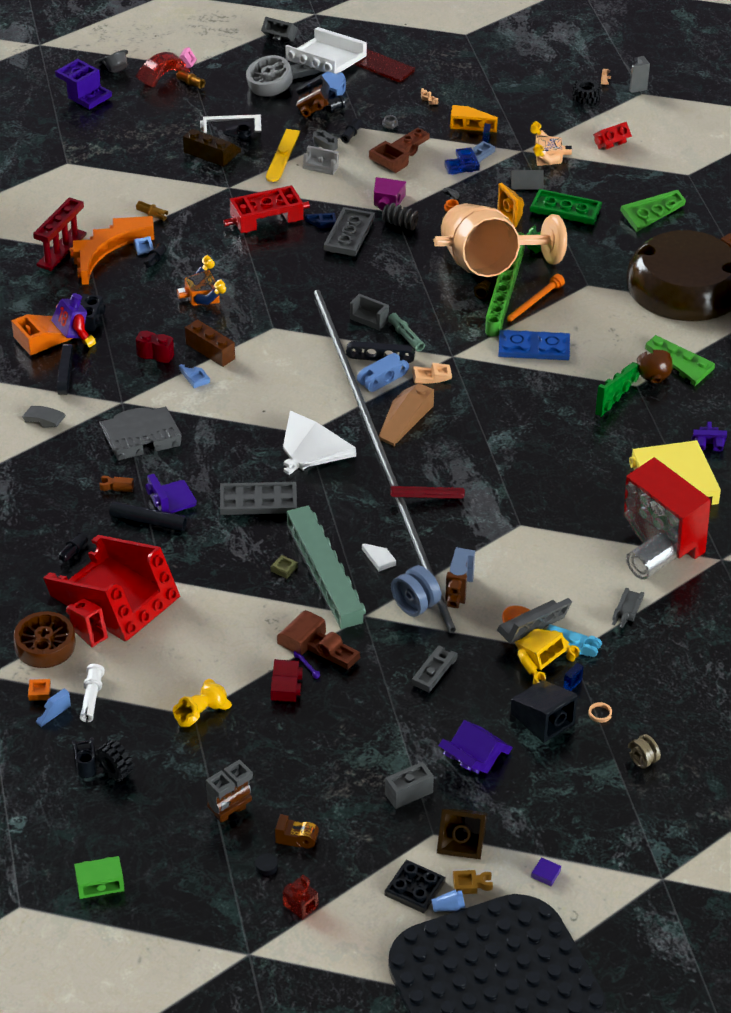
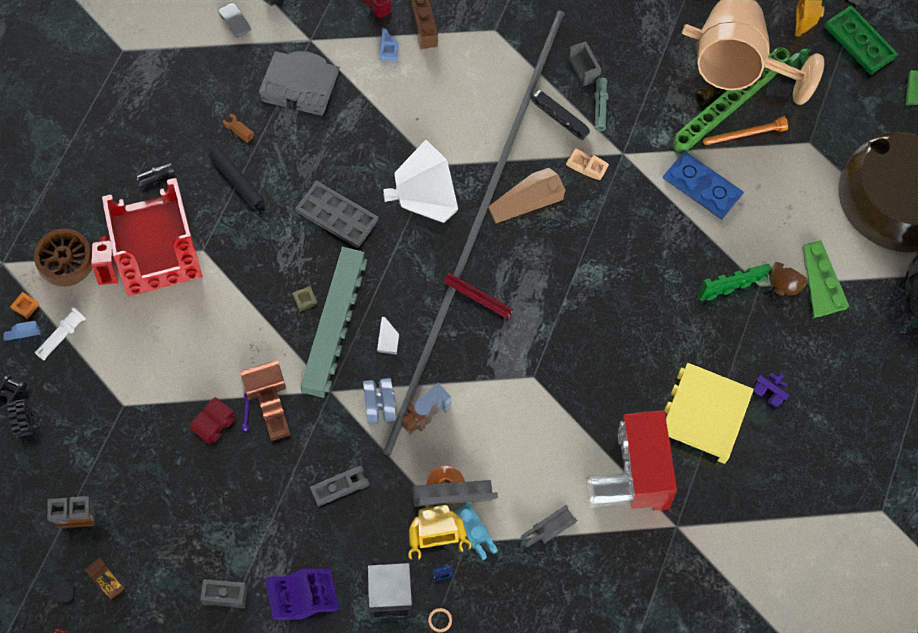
camera: 30 degrees right, 25 degrees up
(171, 496) = (268, 168): dark purple bracket -> none
(189, 708) = (144, 400): yellow animal -> none
(382, 372) = (543, 139): medium blue piece -> none

